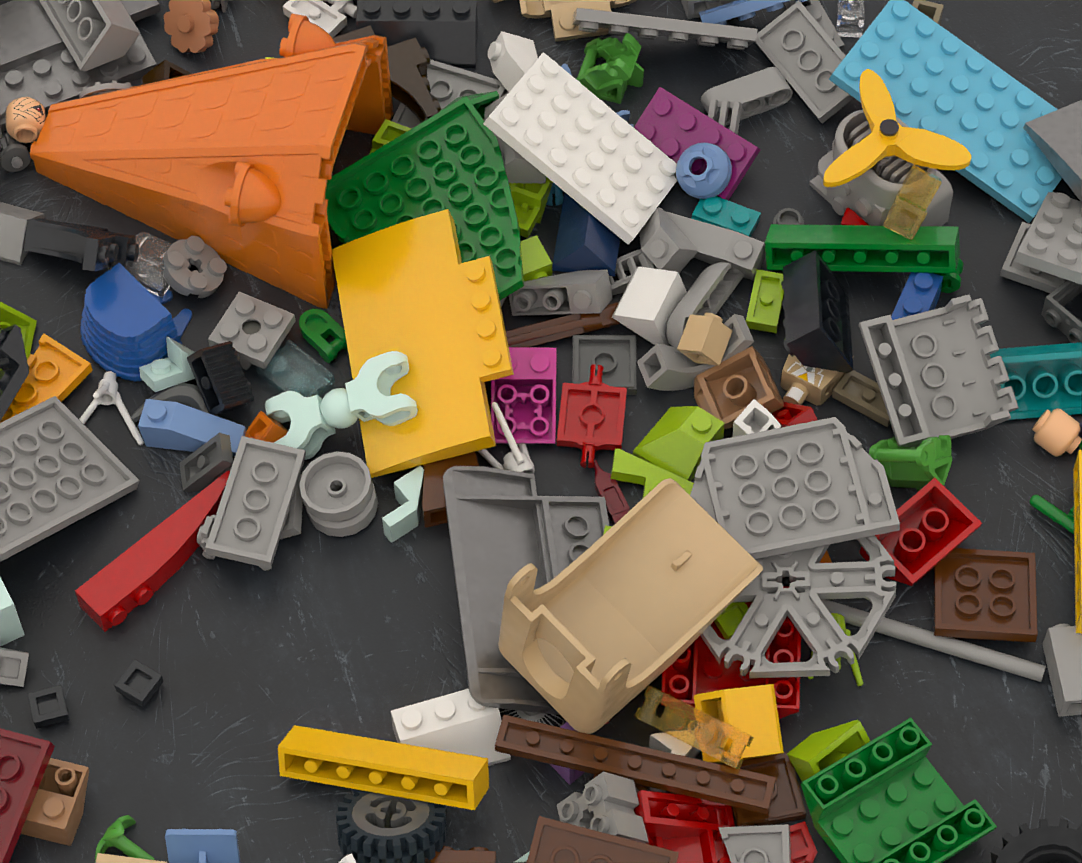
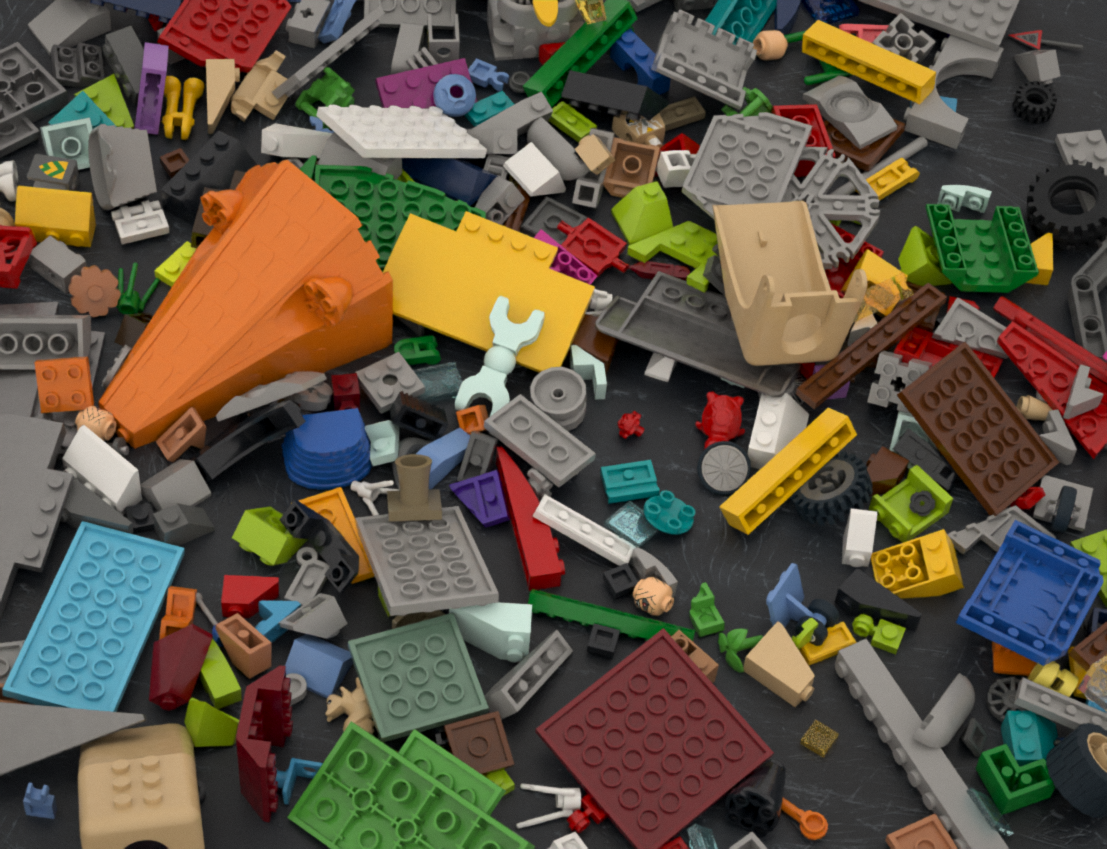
camera: 65 degrees left, 5 degrees down
(42, 63) = (64, 384): none -> orange plate
(67, 196) = (182, 434): none -> nougat slope
(81, 699) = (589, 613): none -> green piece
(109, 434) = (414, 498): none -> dark tan plant
(135, 723) = (653, 596): none -> light nougat head
(142, 231) = (270, 392): none -> light grey slope
(152, 788) = (704, 613): none -> bright green slope
(163, 496) = (483, 497): none -> dark purple wing
(170, 703) = (649, 566): none -> light grey slope
(174, 612) = (584, 531): none -> white tile
(210, 57) = (130, 301): none -> green plant
(210, 301) = (345, 392): none -> dark red brick
(224, 657) = (631, 525): none -> clear light blue piece
(262, 683) = (669, 513): none -> teal dish
(282, 622) = (629, 481): none -> teal plate
(359, 582) = (630, 425): none -> red plant
(360, 704) = (724, 468): none -> light grey wheel
(416, 671) = (721, 418): none -> red animal
(770, 184) = (485, 73): none -> medium blue plate
(794, 129) = (435, 44): none -> light grey piece
(941, 664) = (891, 178): none -> yellow plate
(975, 756) = (965, 196): none -> light aqua slope
(1010, 567) = (851, 111): none -> light grey slope

